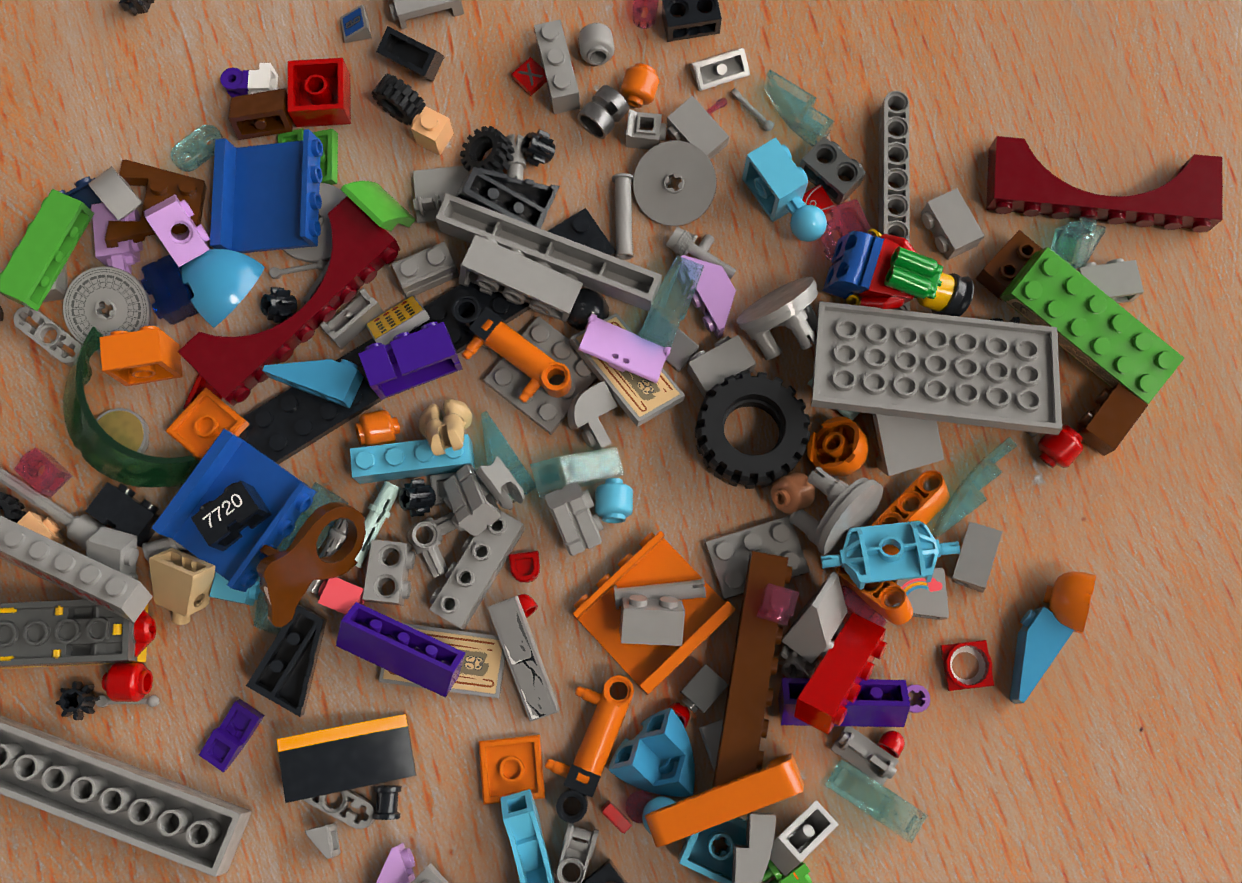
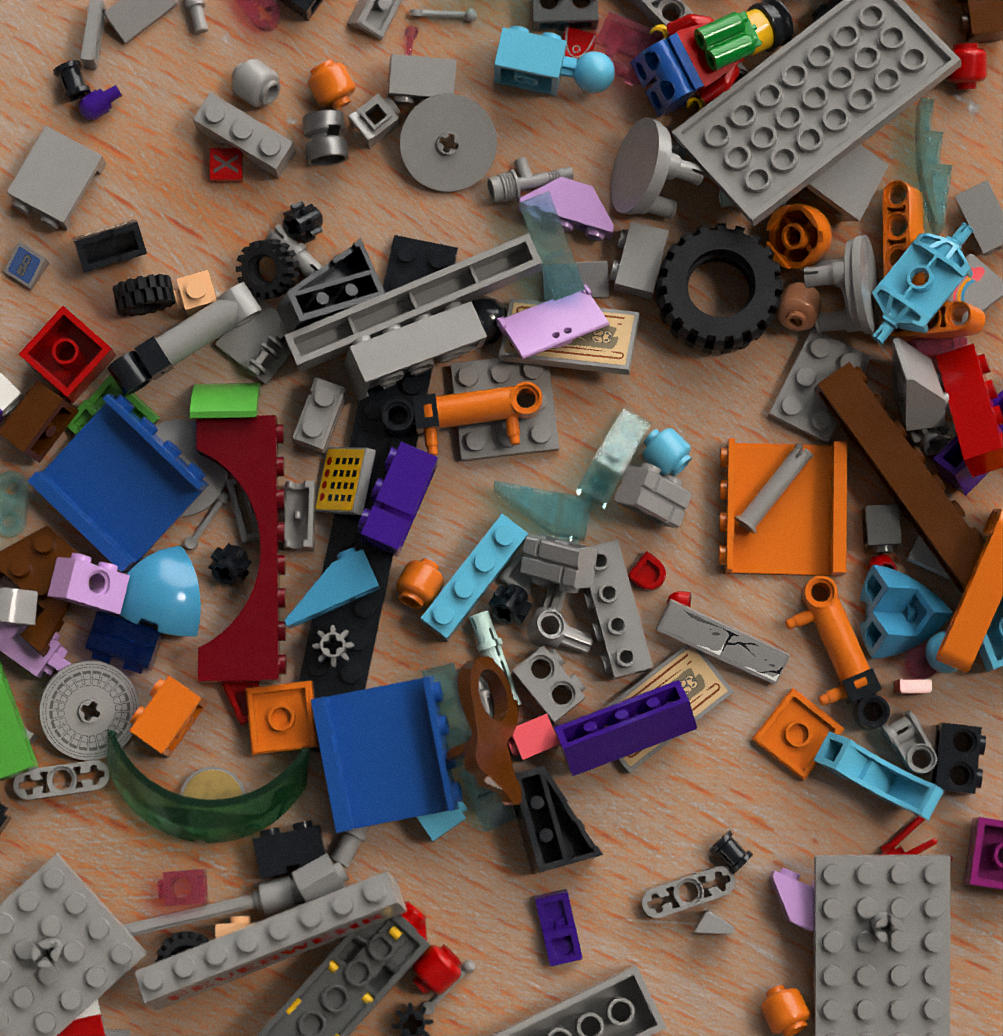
camera: 50 degrees left, 5 degrees up
(181, 583) = (401, 851): tan torso -> none
(229, 514) = (387, 759): black brick -> none
(272, 412) = (340, 652): none -> light grey gear
(345, 758) = (667, 850): black slope -> none
(366, 140) = (160, 354): none -> light grey piece
(446, 432) = (484, 533): tan piece -> none
(501, 482) = (571, 524): light grey piece -> none
(585, 412) = (572, 400): light grey brick -> none
(623, 215) = (432, 211): light grey pin -> none
(652, 621) = (792, 514): light grey brick -> none
(777, 604) = (878, 405): clear pink brick -> none

